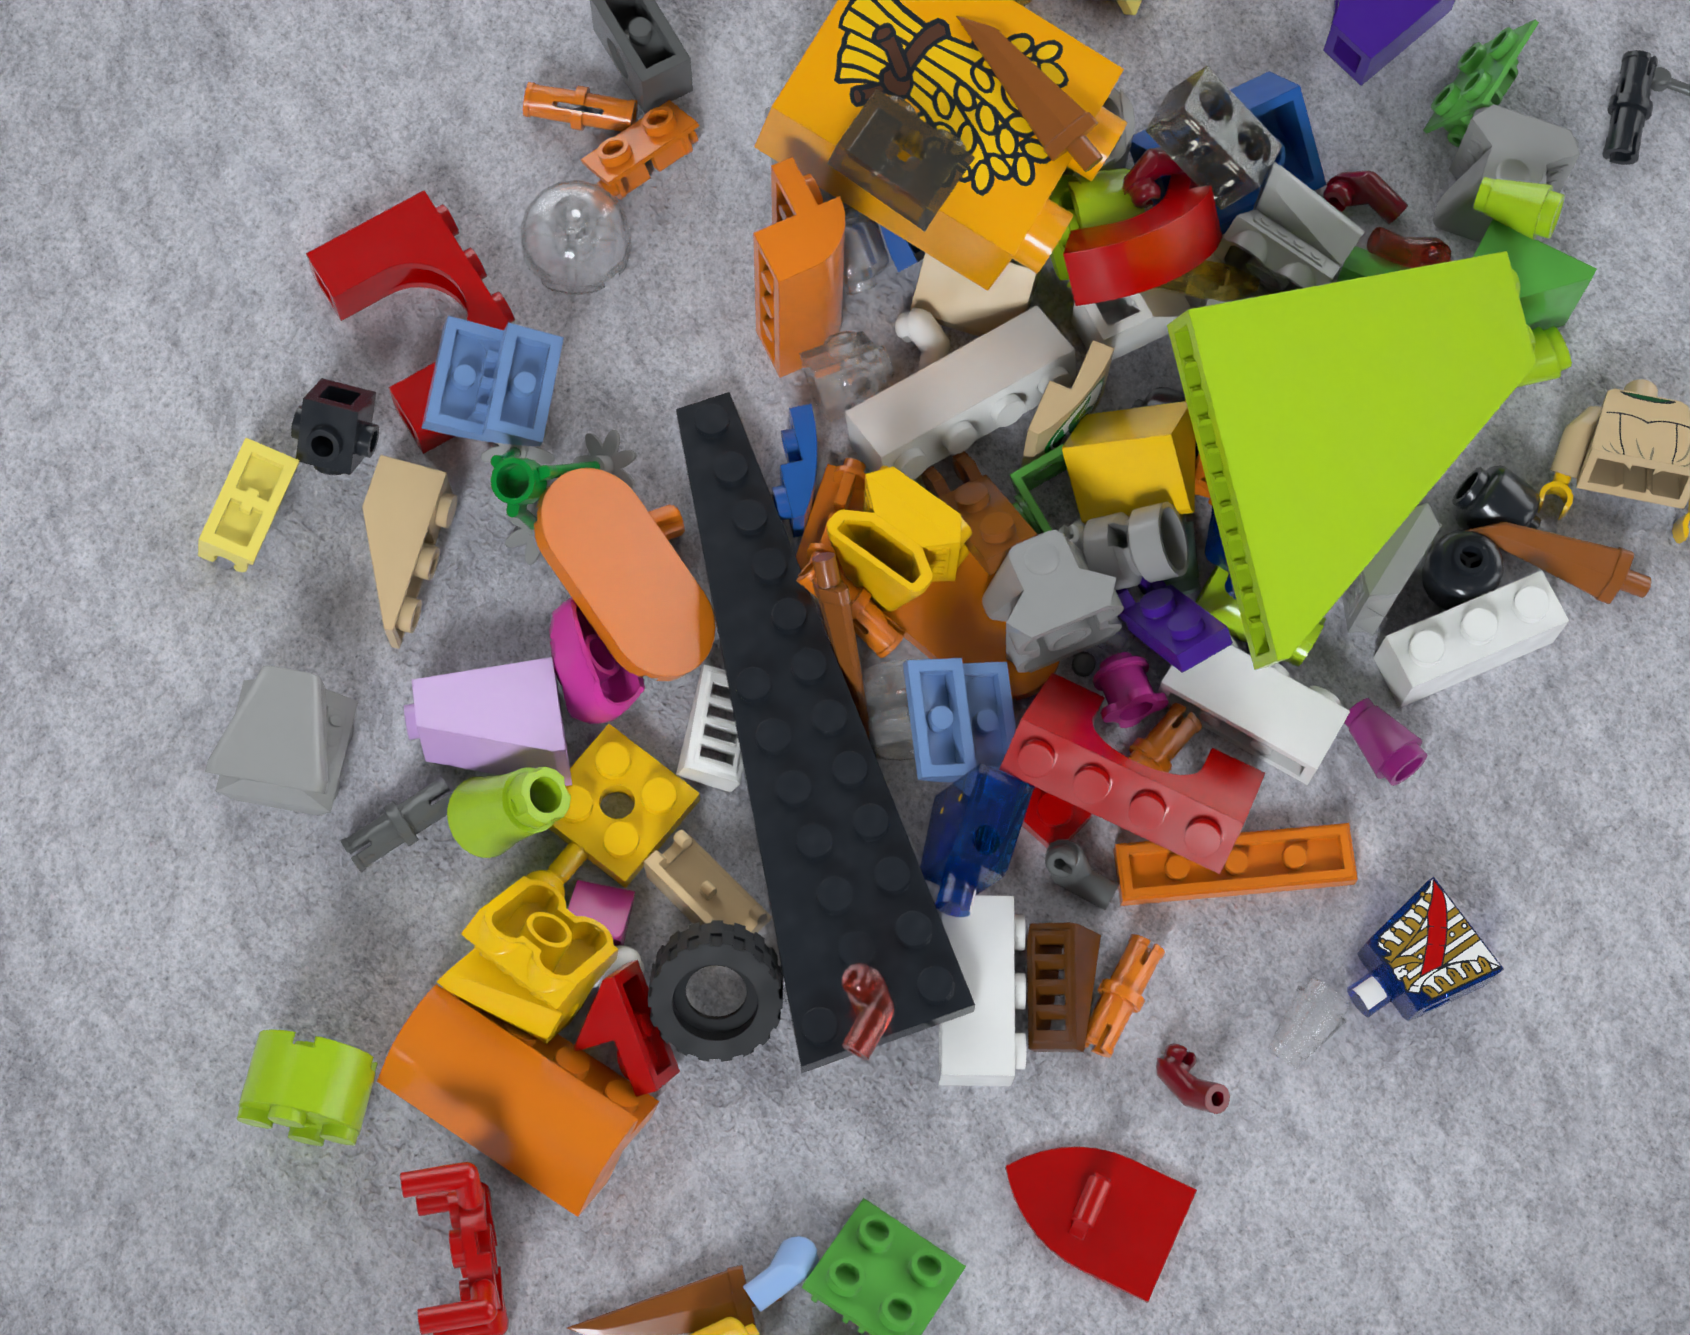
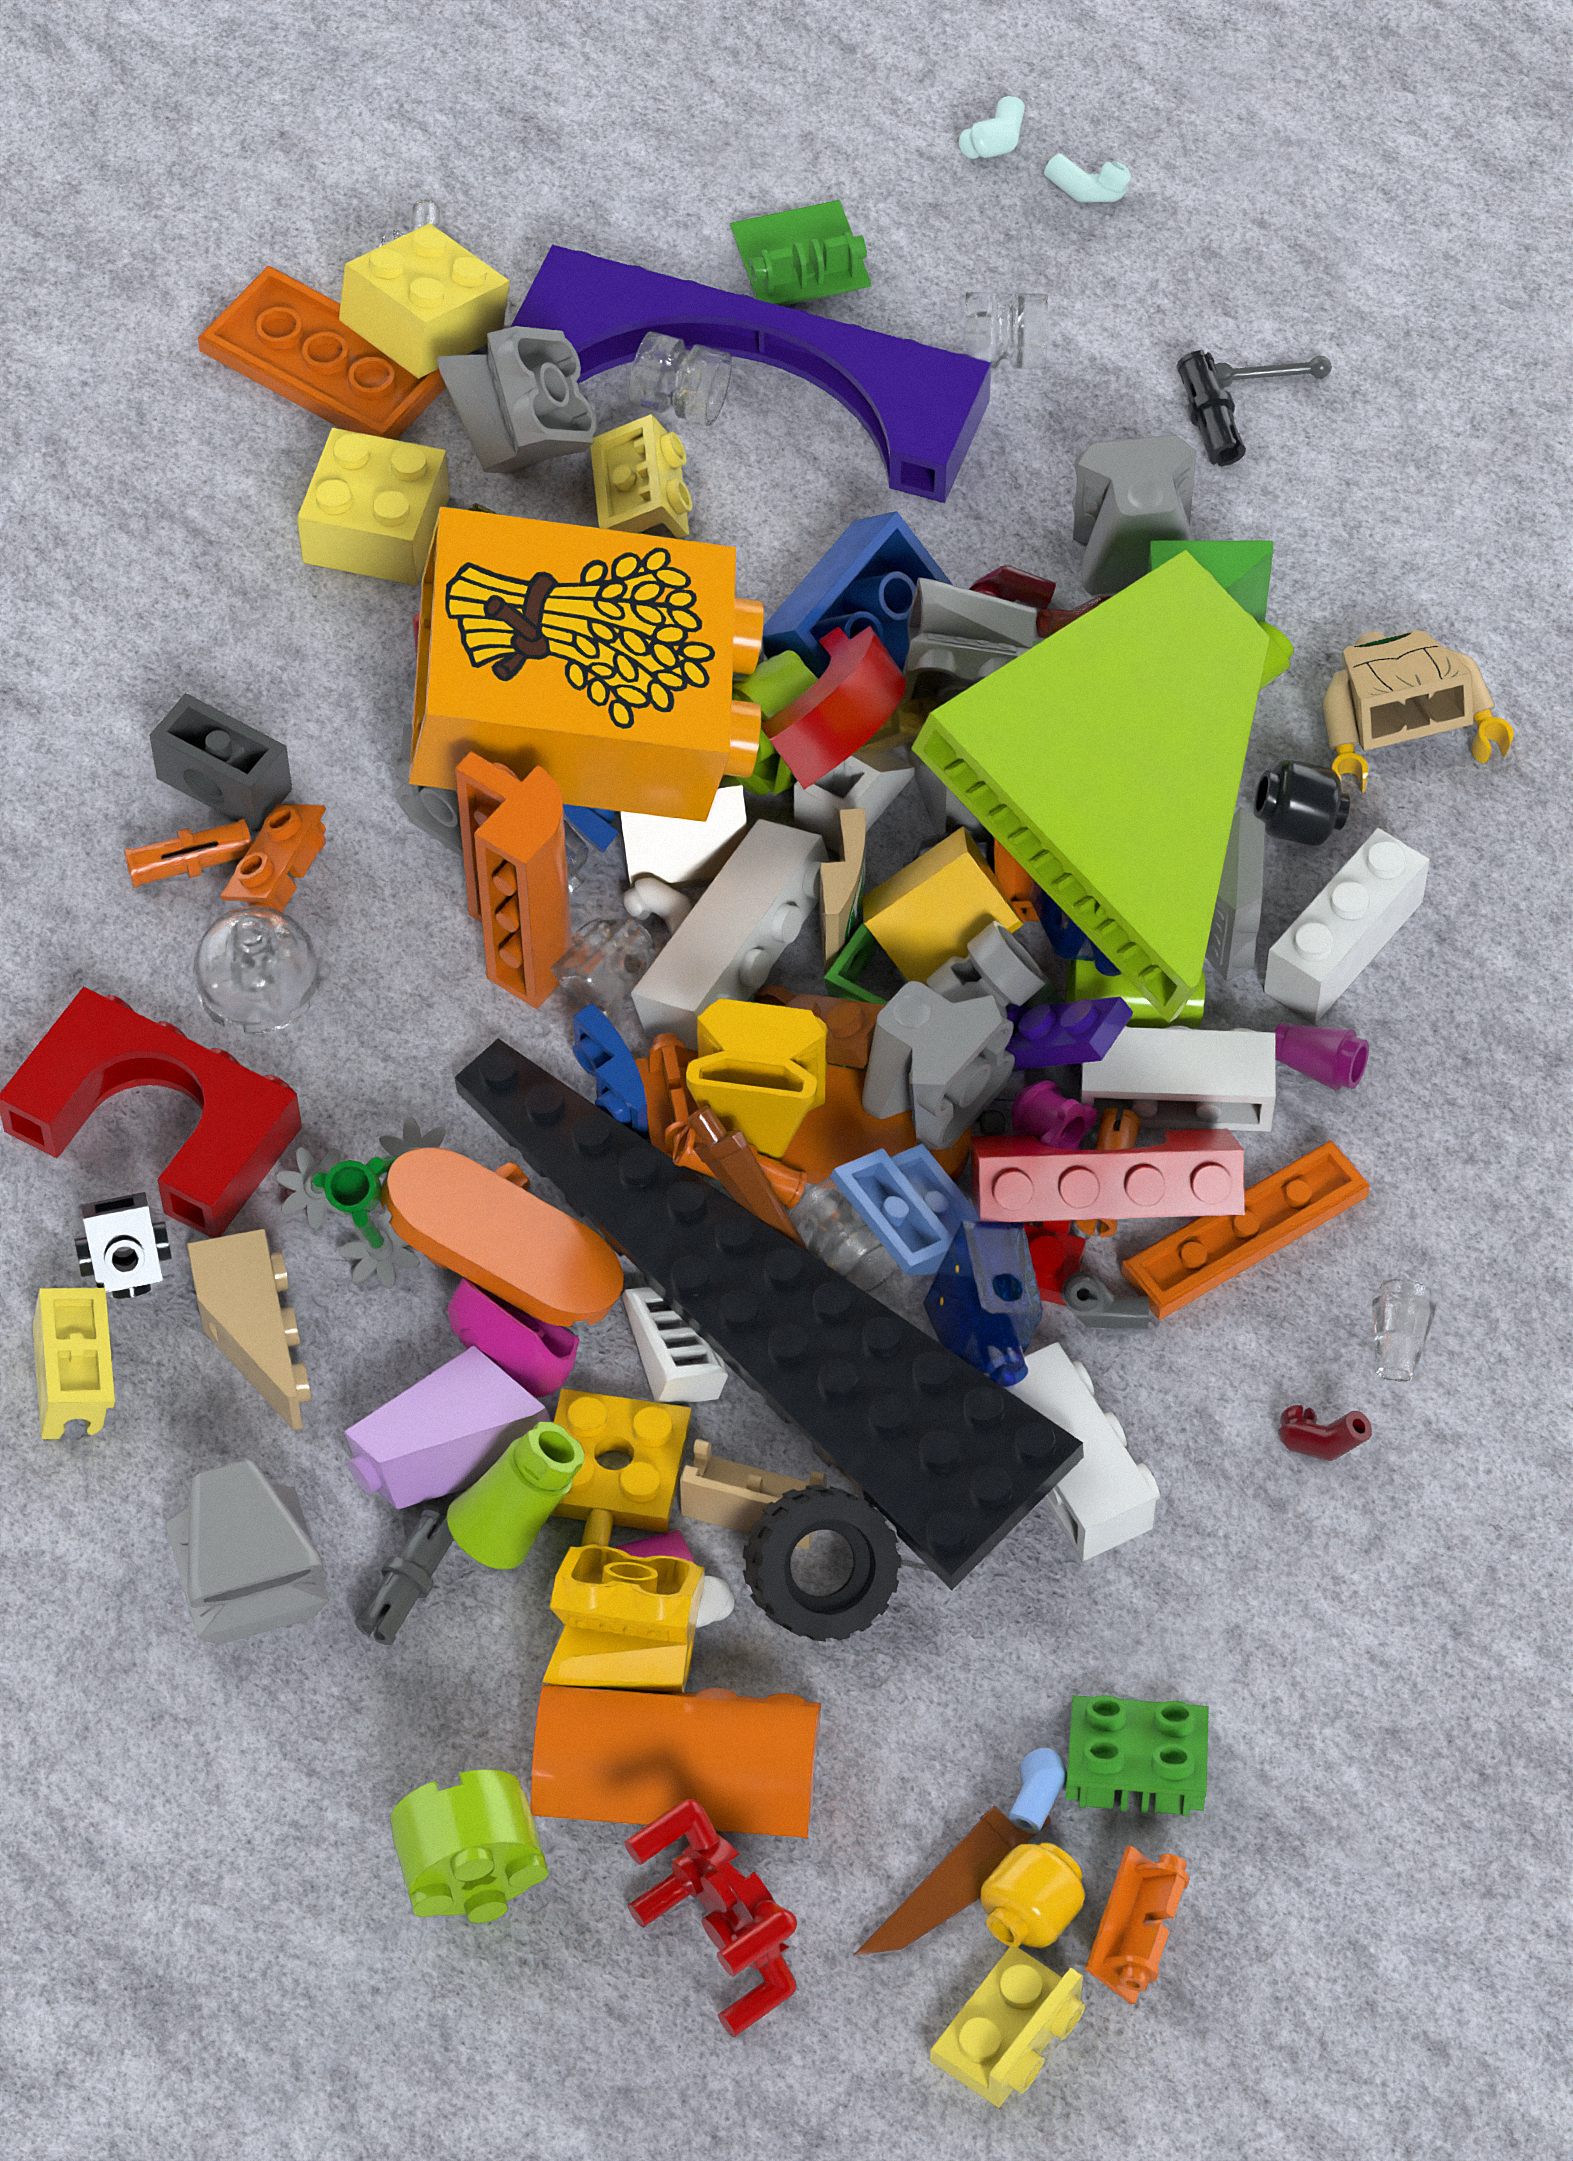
camera: 25 degrees left, 15 degrees down
(492, 383) = (264, 1123): medium blue slope -> none
(623, 1015) = (742, 1627): red slope -> none
(872, 1008) = (989, 1483): clear red arm -> none
(912, 187) = (580, 704): clear smoke brick -> none
(1043, 967) = (1123, 1374): reddish brown slope -> none
(1046, 108) = (687, 608): dark orange bar -> none
(1102, 1213) = (1308, 1596): red shield -> none
(1122, 994) = (1210, 1392): orange pin -> none
(1141, 178) = (799, 648): dark red arm -> none
(1214, 137) = (847, 582): clear smoke brick -> none
(1422, 958) = (1474, 1219): torso -> none
(1461, 568) = (1300, 865): black head -> none
(1482, 81) = (1056, 441): bright green hinge -> none
(1521, 205) = (1170, 515): lime cone -> none
(1580, 563) = (1406, 814): dark orange bar -> none

